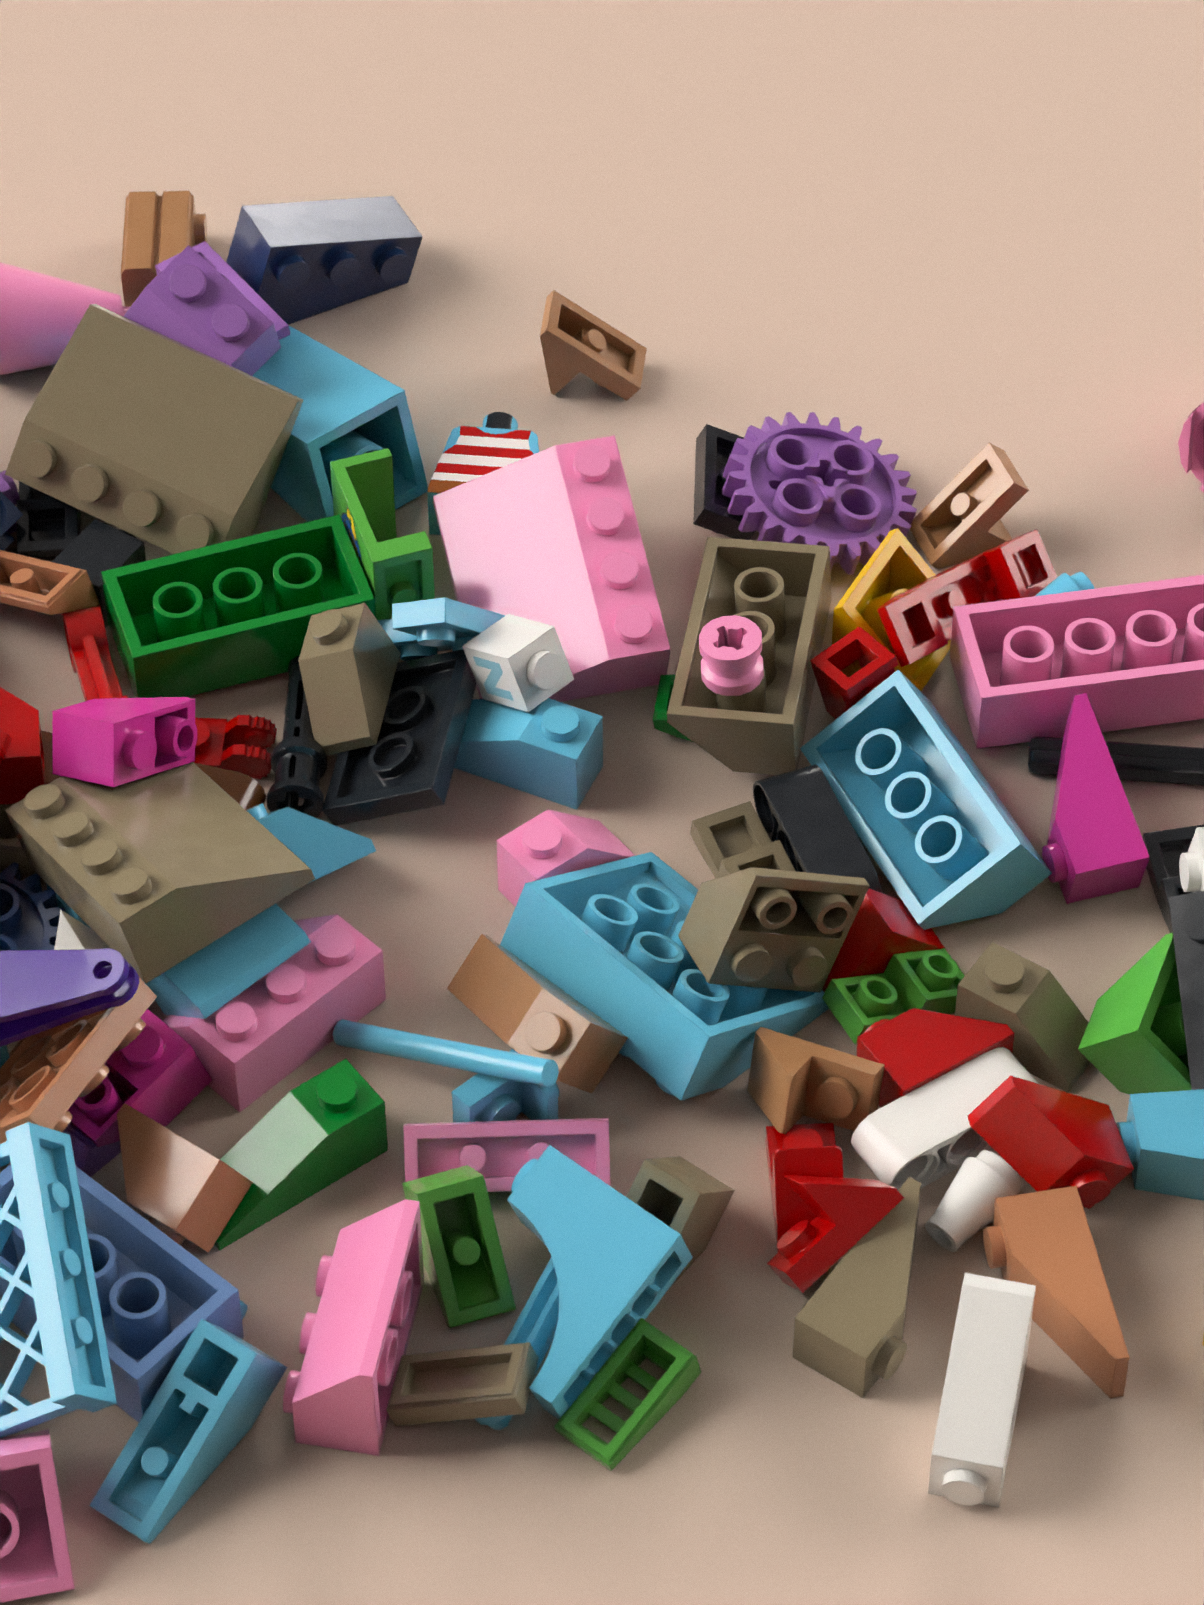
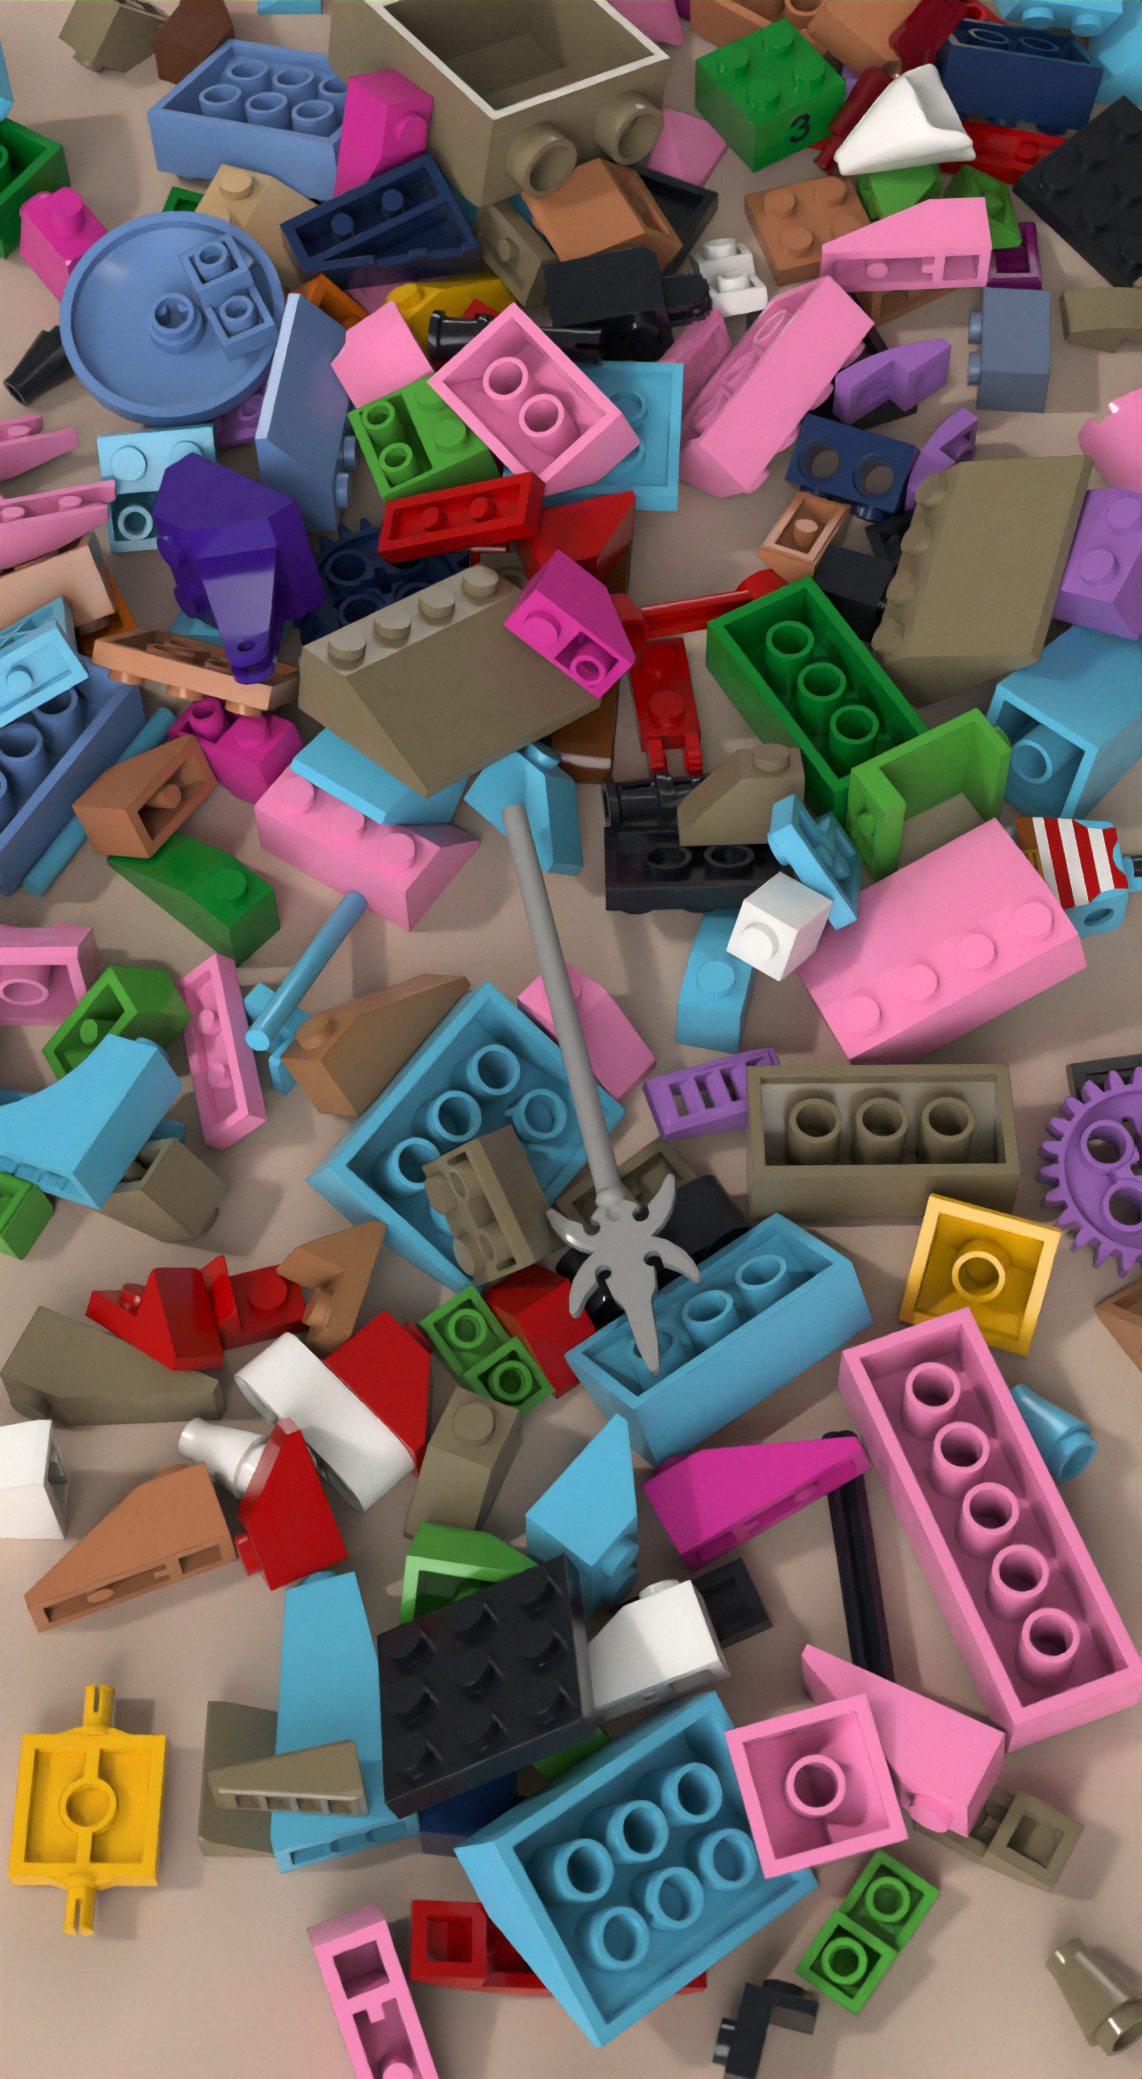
camera: 80 degrees right, 10 degrees up
(661, 762) = (709, 1077): none -> medium lavender slope
(731, 655) = (818, 1116): bright pink wheel -> none
(841, 826) = (622, 1241): none -> light grey piece
(843, 692) = (877, 1261): red brick -> none
(923, 615) = (1015, 1323): red slope -> none
(1100, 902) = (592, 1518): none -> medium azure slope

